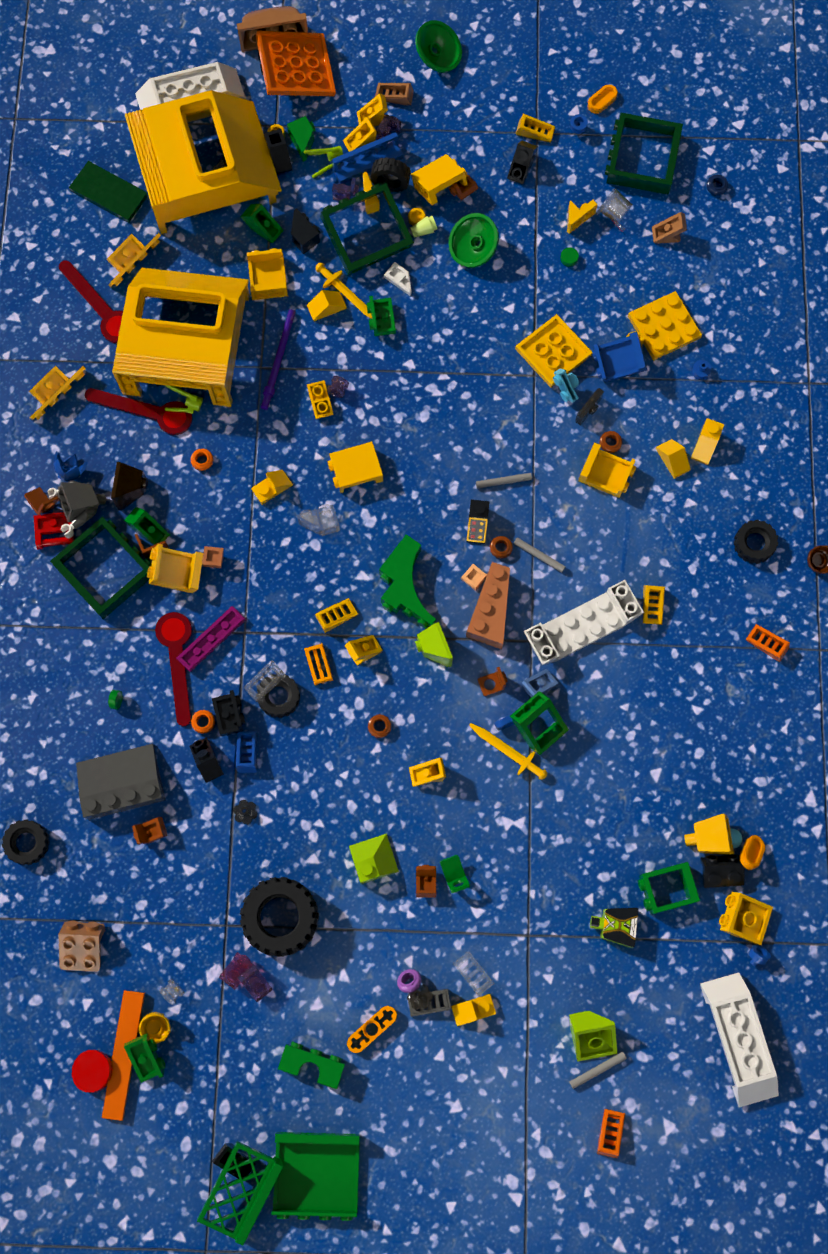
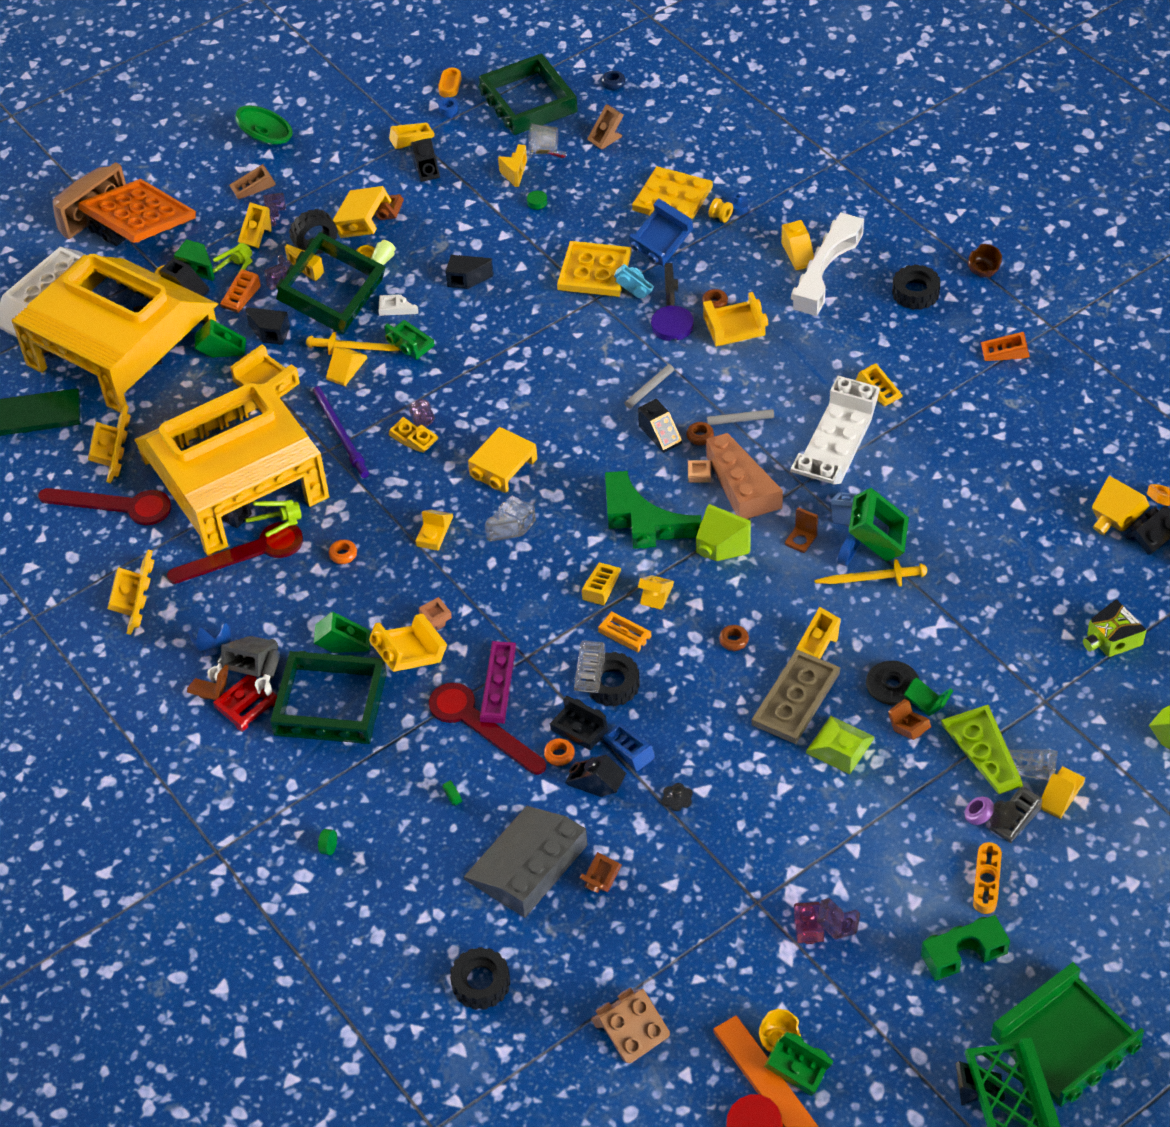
camera: 35 degrees left, 25 degrees down
(18, 673) = (327, 841): none -> green tile
(127, 485) = (289, 612): dark brown slope -> none
(146, 552) = (365, 650): dark orange bracket -> none
(171, 991) = (763, 991): clear wheel -> none
(251, 917) = (796, 872): black tyre -> none
(313, 179) = (243, 279): none -> orange slope
(355, 166) = (276, 239): blue fence -> none
(374, 110) = (249, 193): yellow slope -> none
(376, 803) = (796, 696): none -> dark tan plate
(439, 831) = (886, 670): none -> black wheel
(456, 936) = (985, 747): none -> lime wing
(467, 234) = (432, 226): green dish -> none
(467, 287) = (468, 271): none -> black slope
(565, 438) = (672, 323): none -> dark purple tile
(674, 457) = (781, 274): yellow slope -> none
(683, 366) = (720, 210): none -> yellow wheel
(688, 885) = (1133, 556): green window -> none
(747, 457) = (843, 236): none -> white arch

